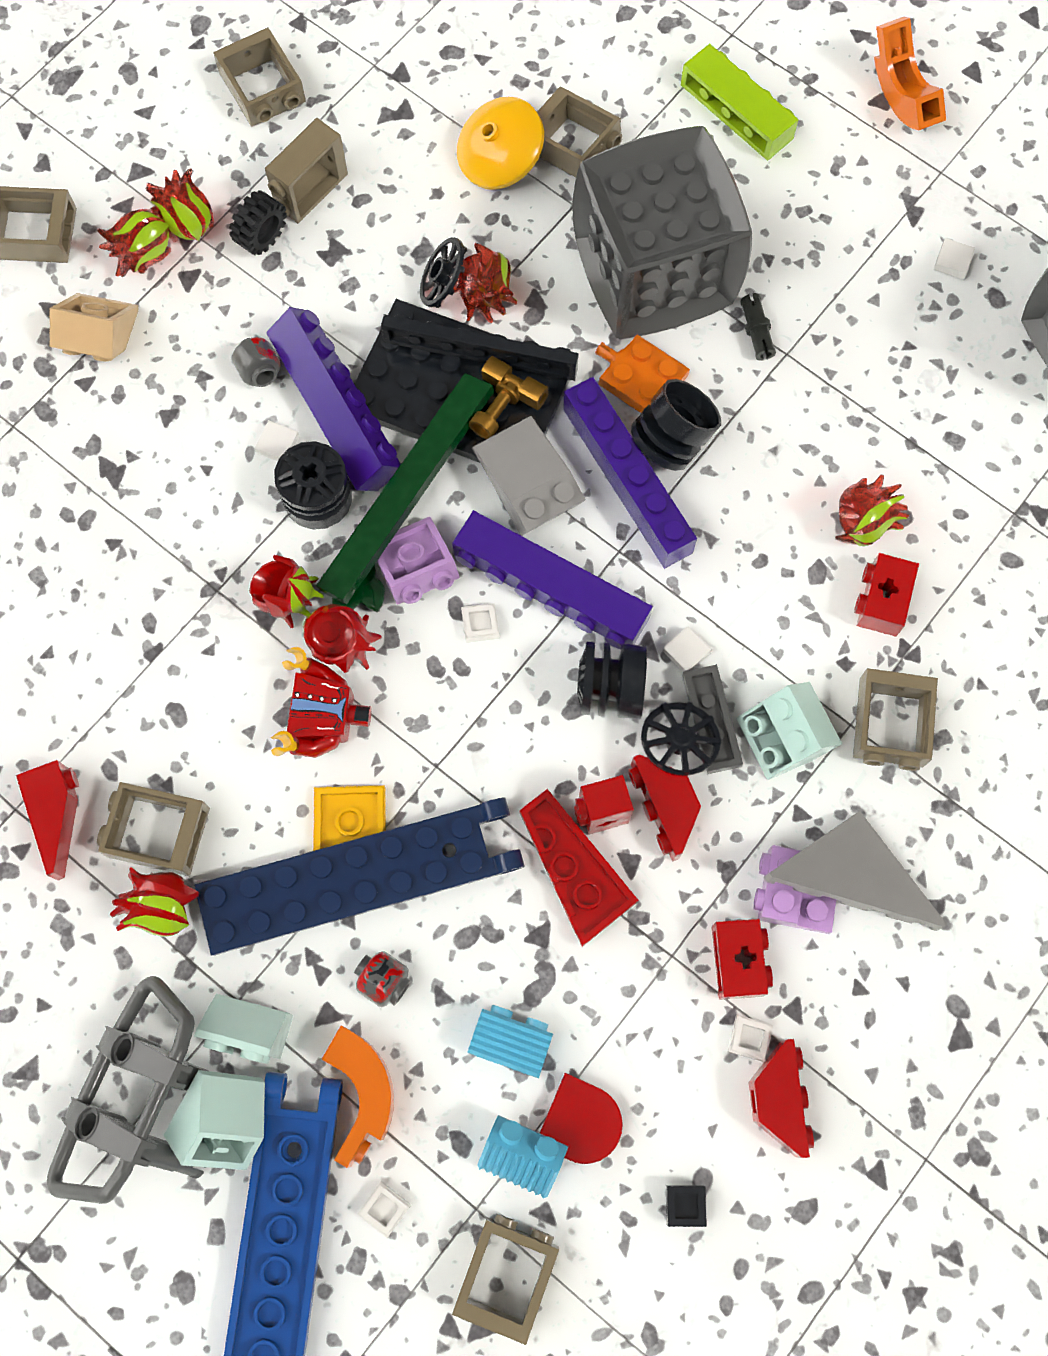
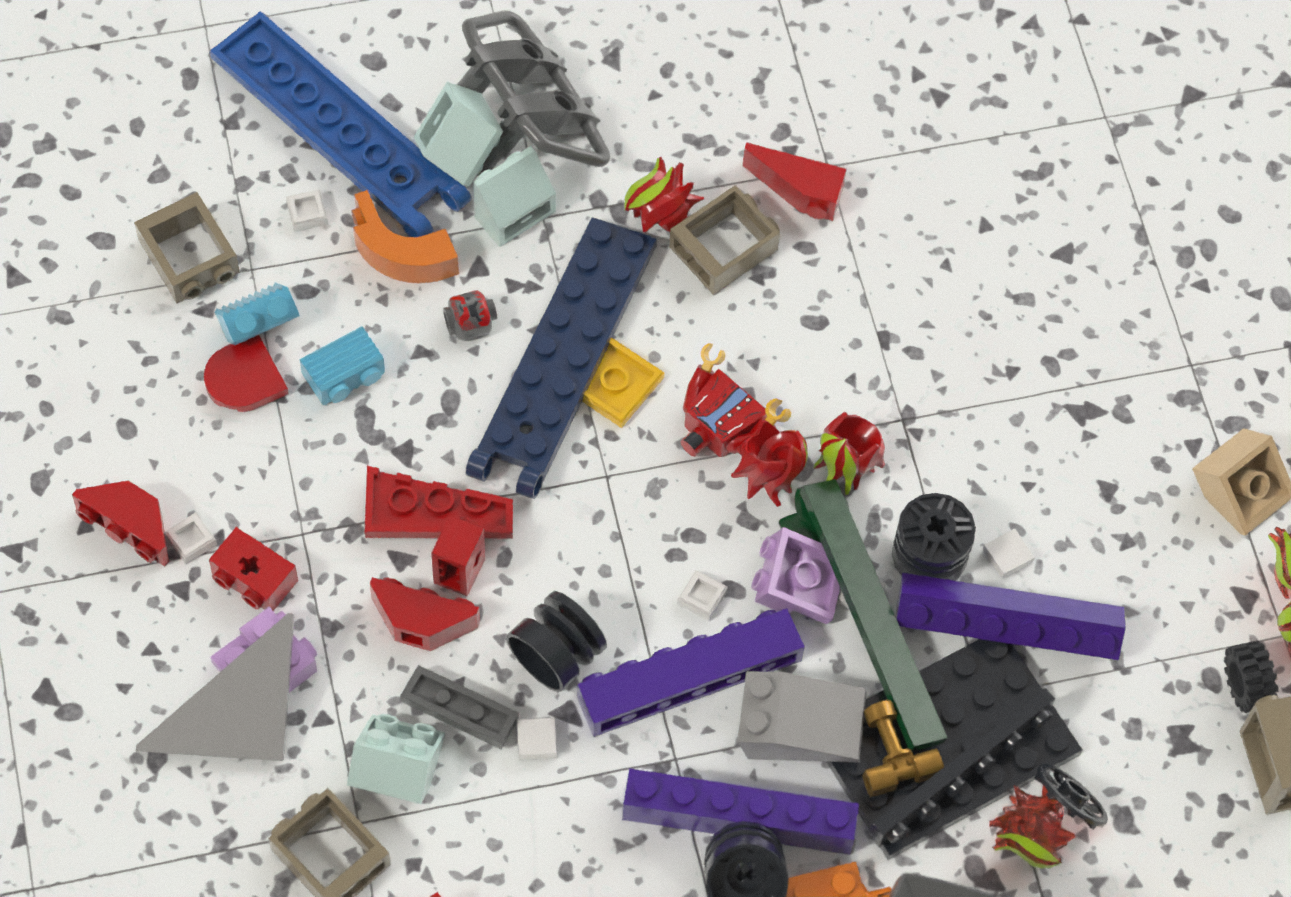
camera: 125 degrees right, 10 degrees down
(256, 362) = (1101, 582): dark grey head -> none
(680, 737) = (462, 657): black wheel -> none
(686, 1206) = (121, 398): black plate -> none

